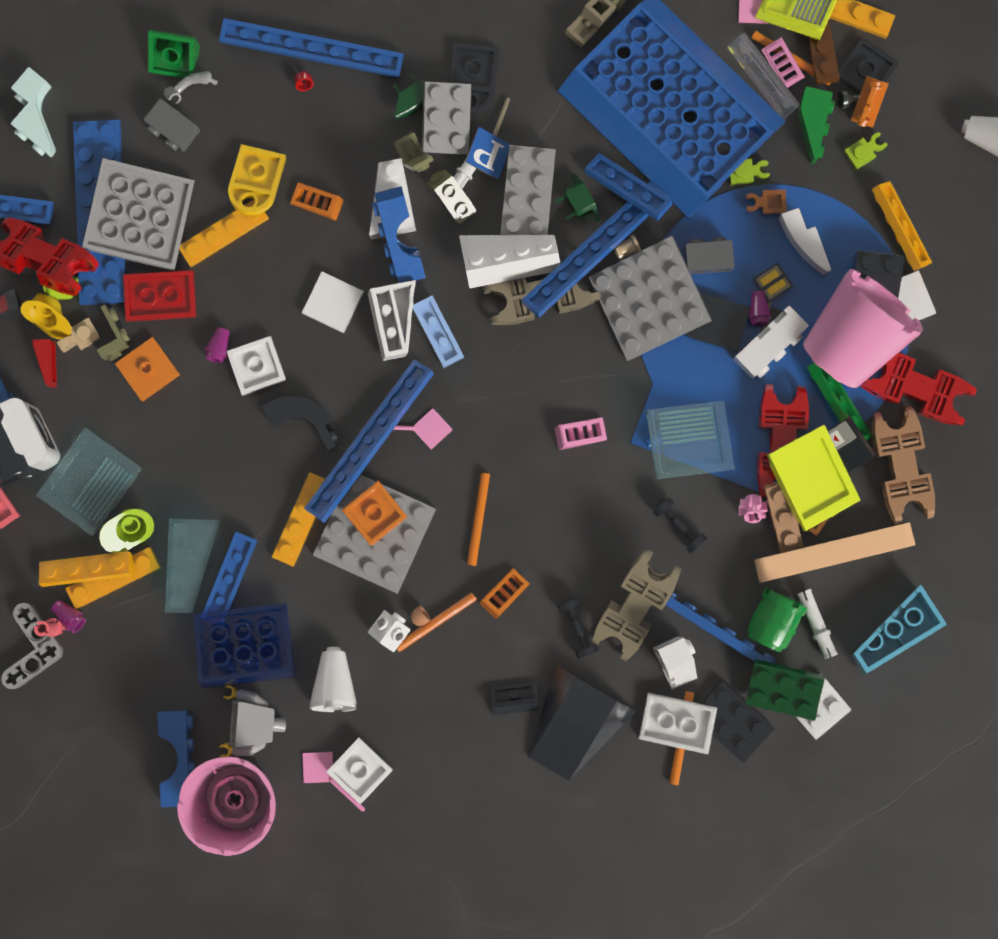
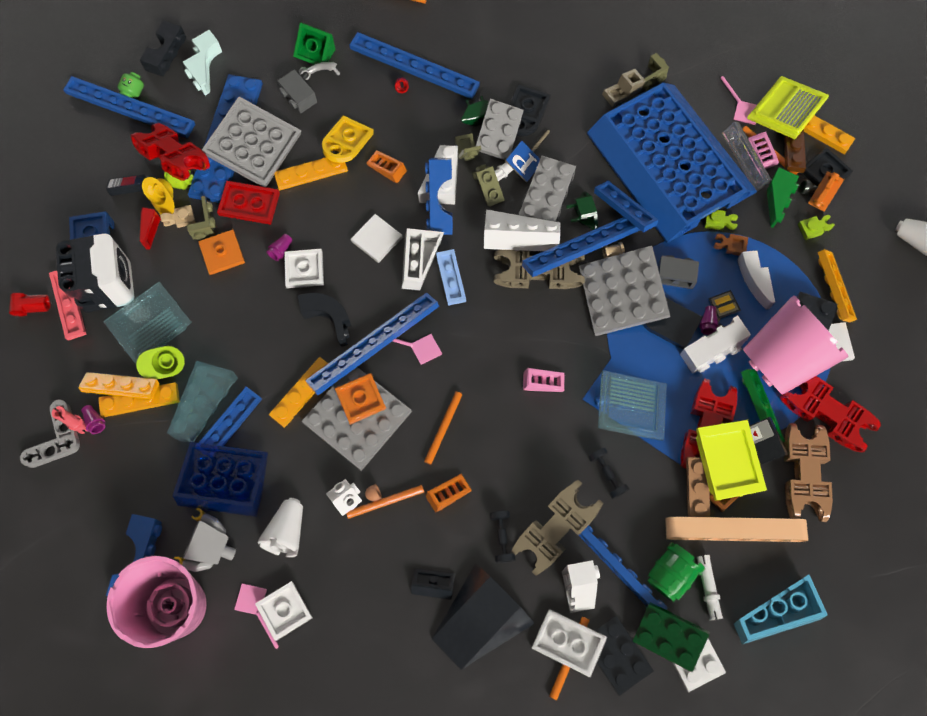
camera: 15 degrees right, 15 degrees down
(752, 508) = (673, 474): bright pink gear -> none

